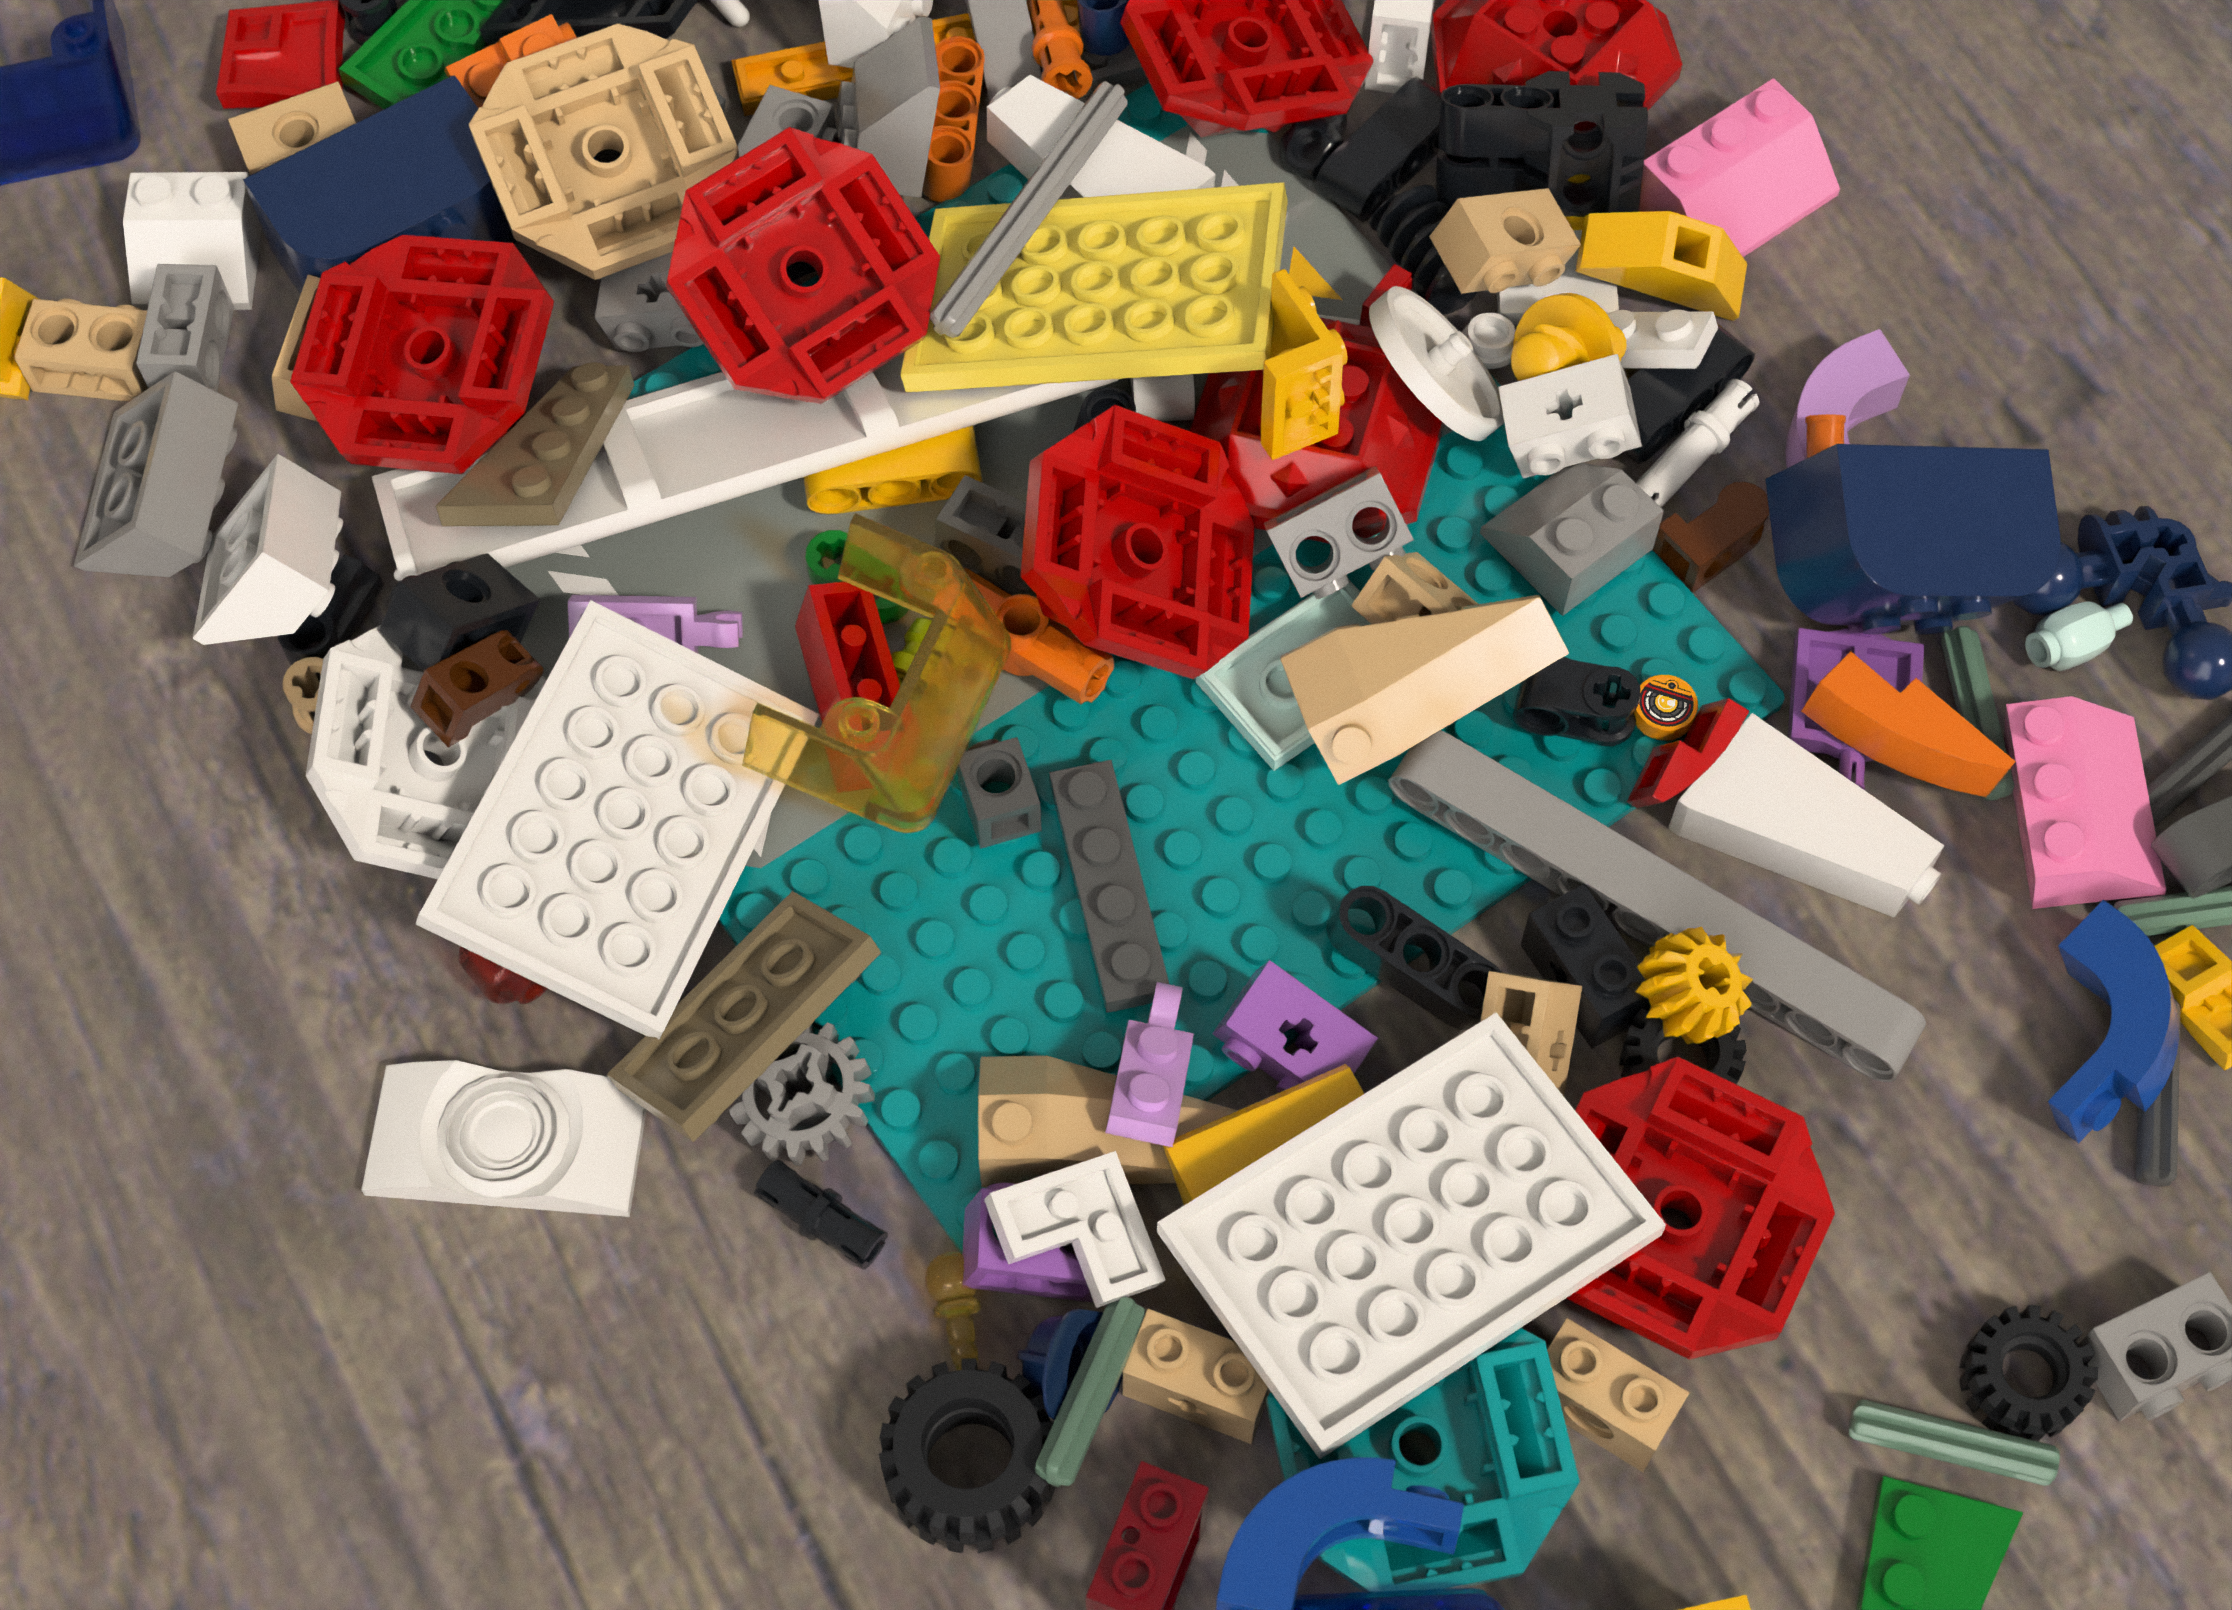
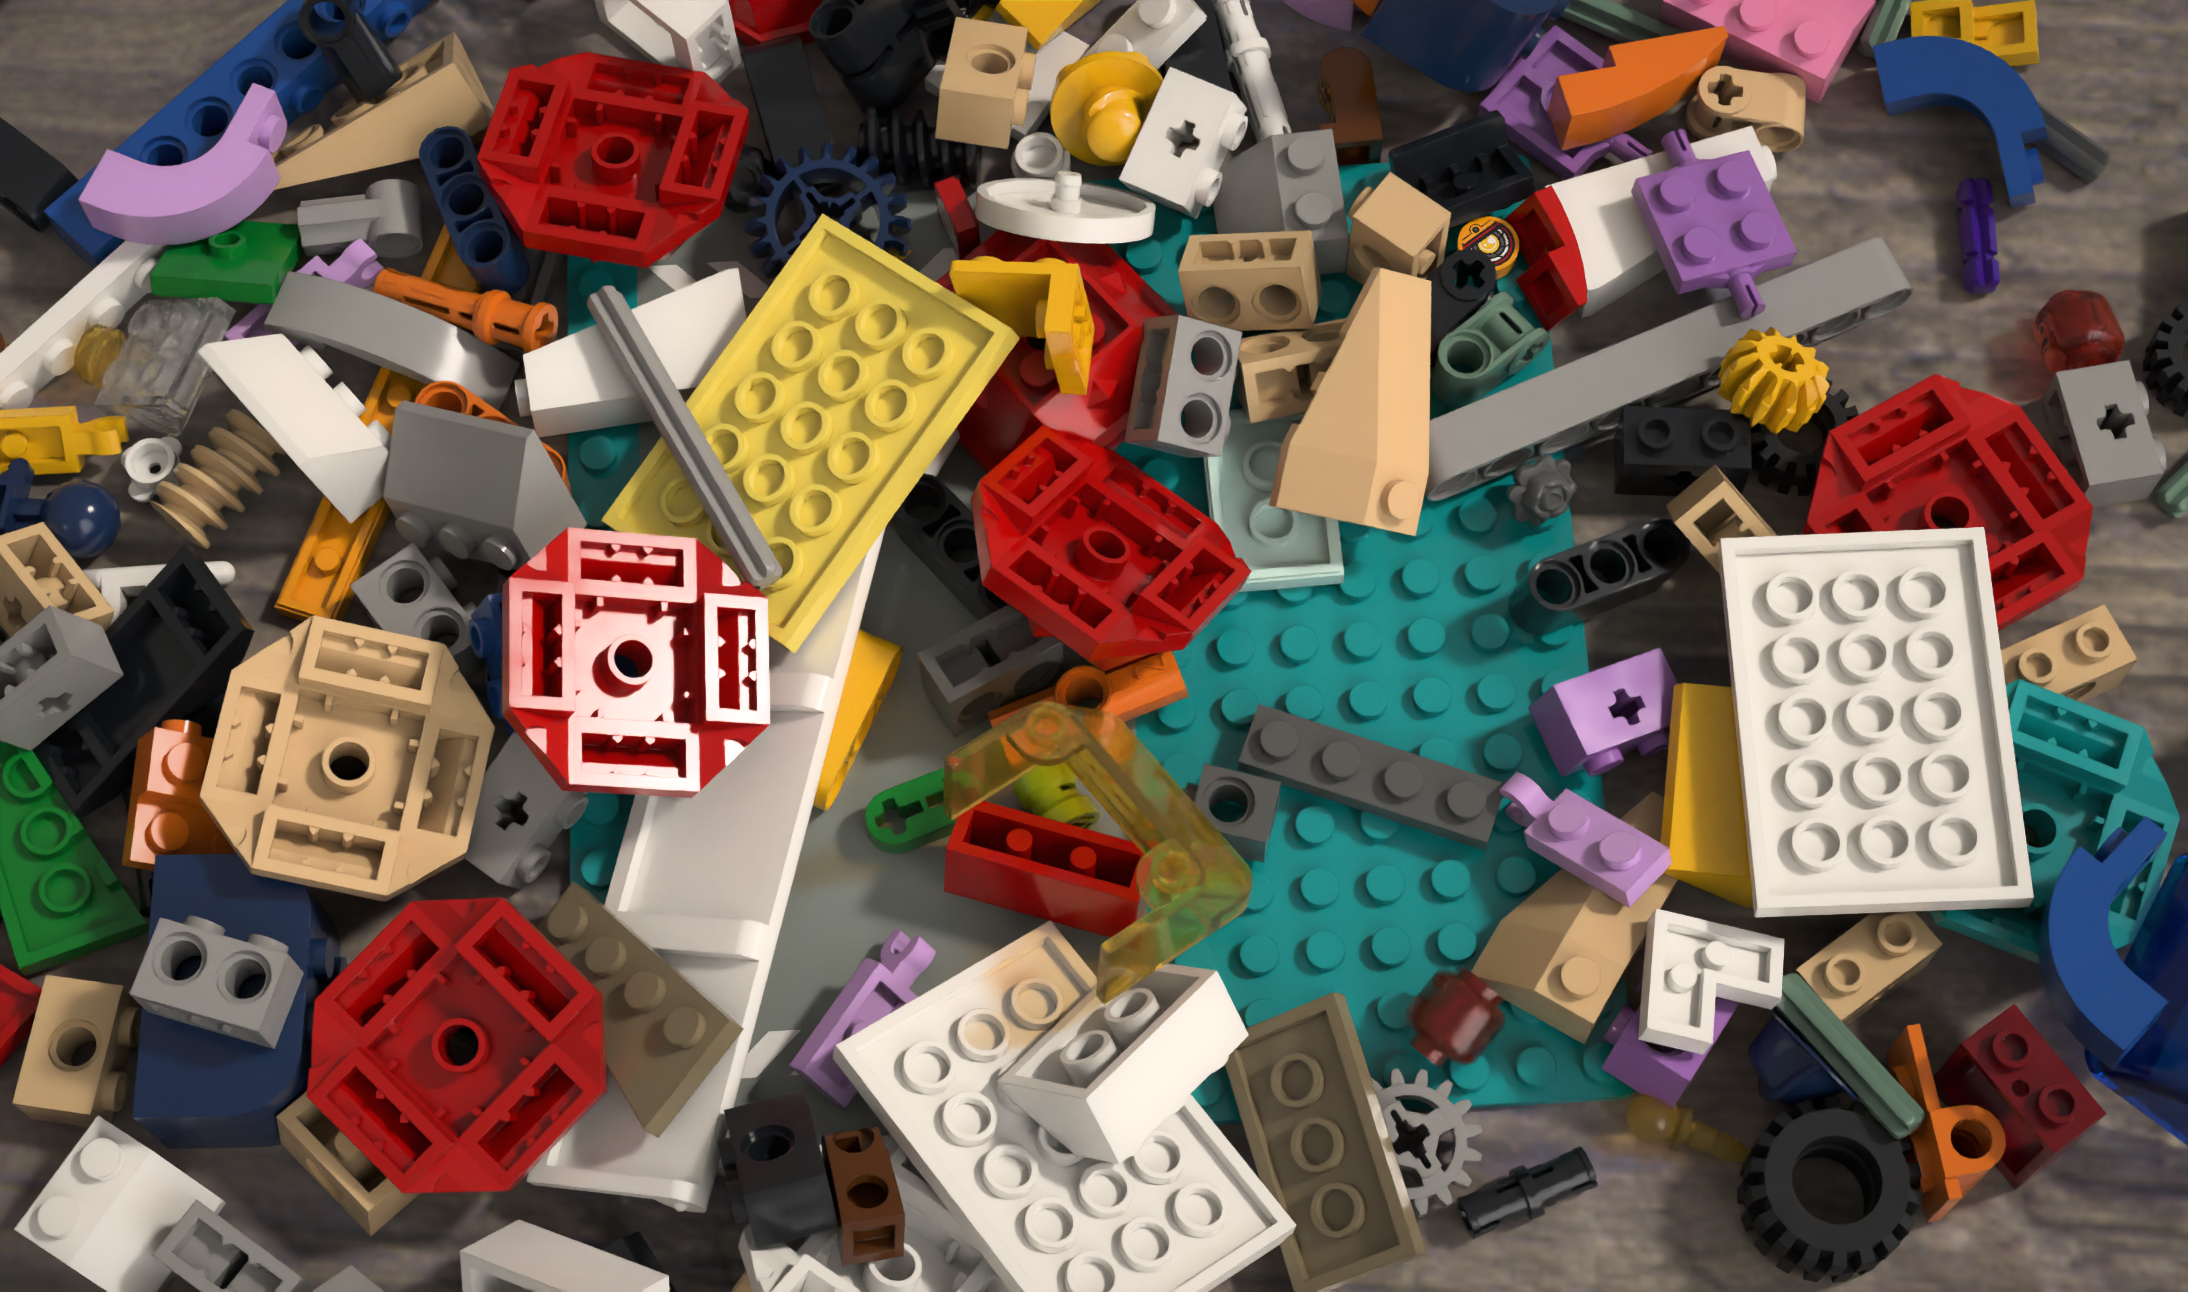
camera: 55 degrees left, 5 degrees up
(370, 160) = (211, 994): none -> light grey brick
(716, 821) = (1126, 1064): none -> white slope
(928, 1059) = (1454, 1017): none -> clear red head
(1074, 1514) = (1951, 1141): none -> orange piece
(1342, 232) = (847, 208): none -> dark blue gear
(1461, 867) = (1541, 490): none -> dark grey plant
(1478, 532) = (1252, 280): none -> tan brick
(1566, 753) = (1492, 343): none -> sand green piece
(1602, 610) = (1396, 231): none -> tan brick
(1712, 640) = (1465, 168): none -> black bracket
(1815, 859) = (1713, 222): none -> medium lavender plate
(1891, 1283) = (2104, 432): none -> light grey brick
(1961, 1243) = (2077, 331): none -> clear red head
(1978, 851) = (1750, 98): none -> tan piece
(2000, 1107) = (1977, 236): none -> dark purple axle

